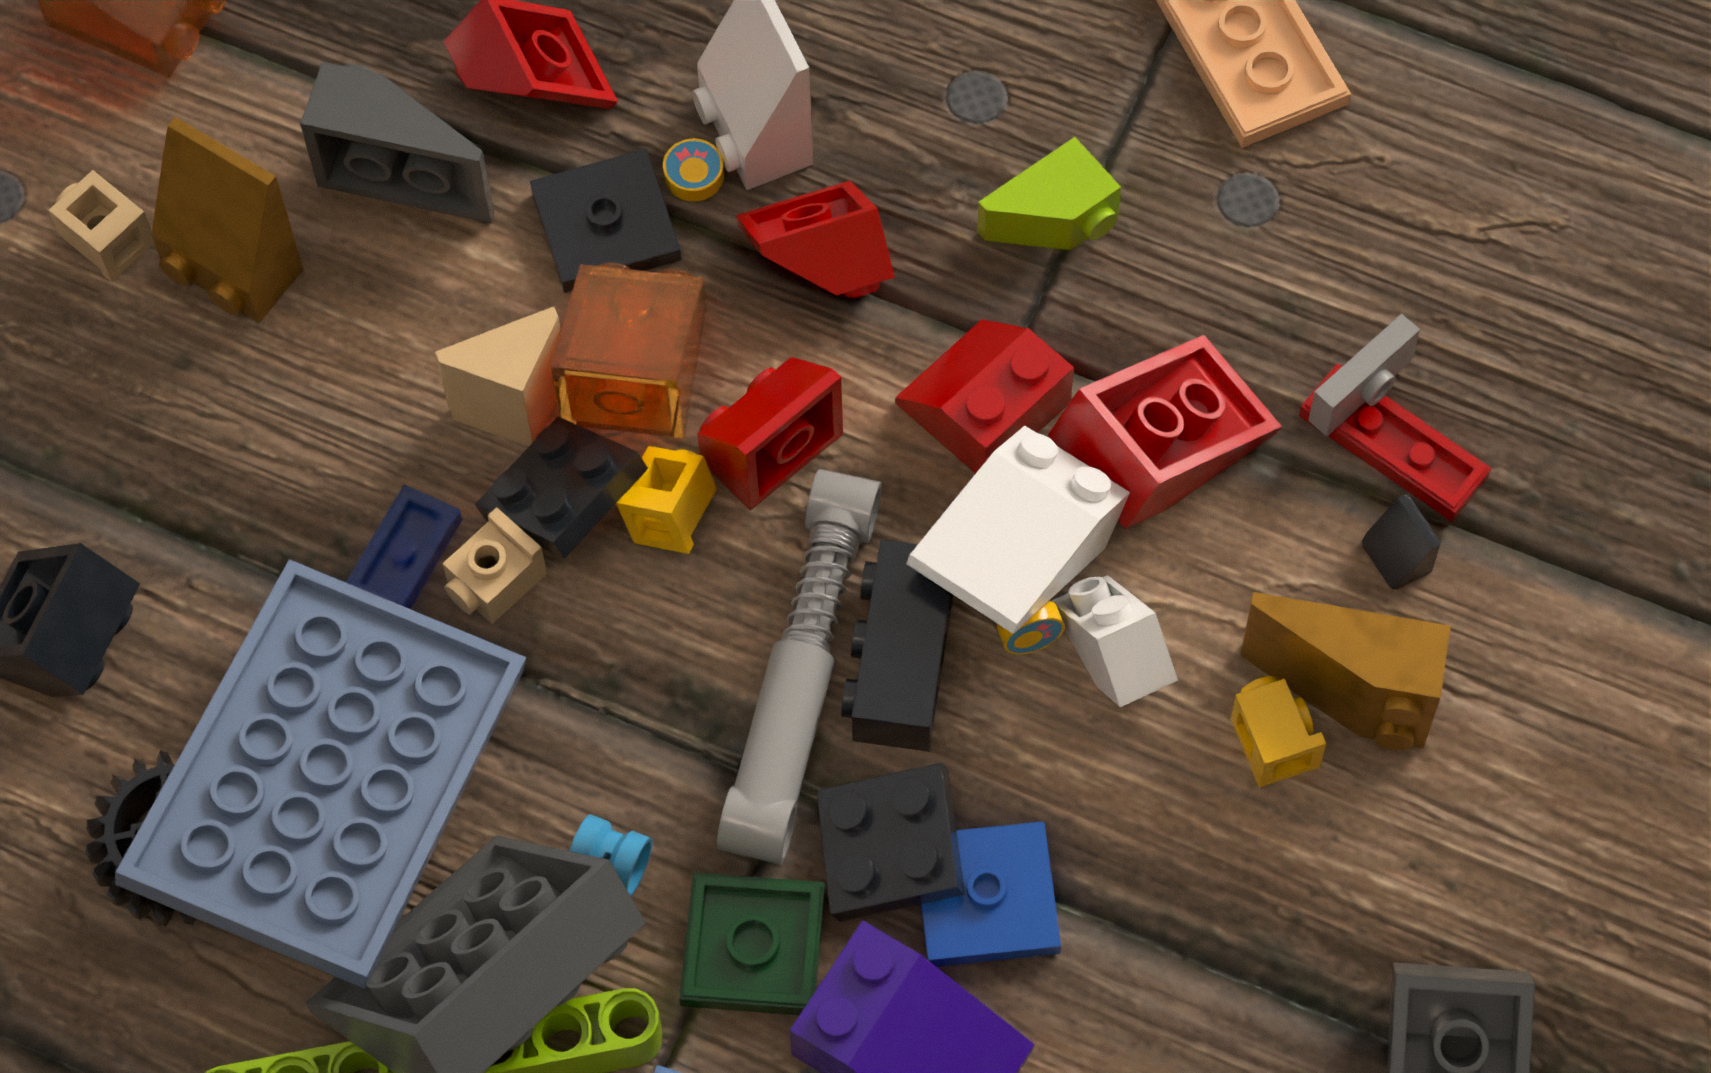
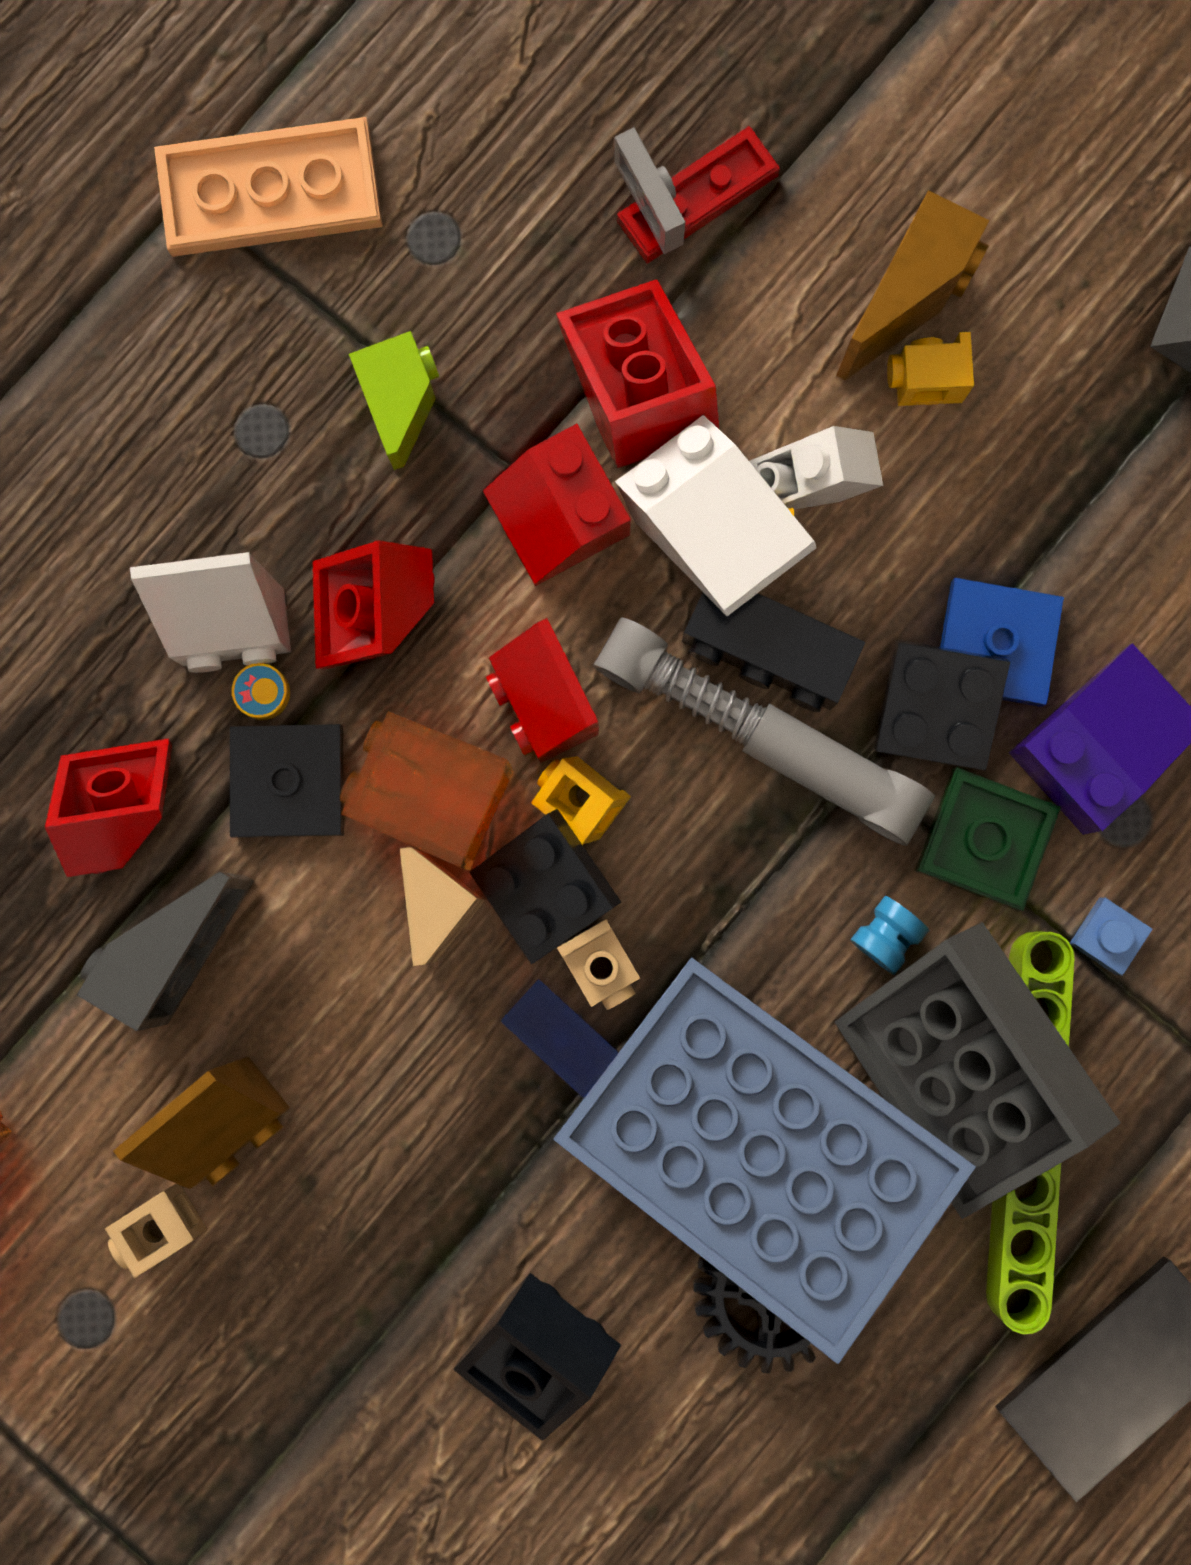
camera: 70 degrees left, 20 degrees up
(1402, 544) = (796, 217): black slope -> none

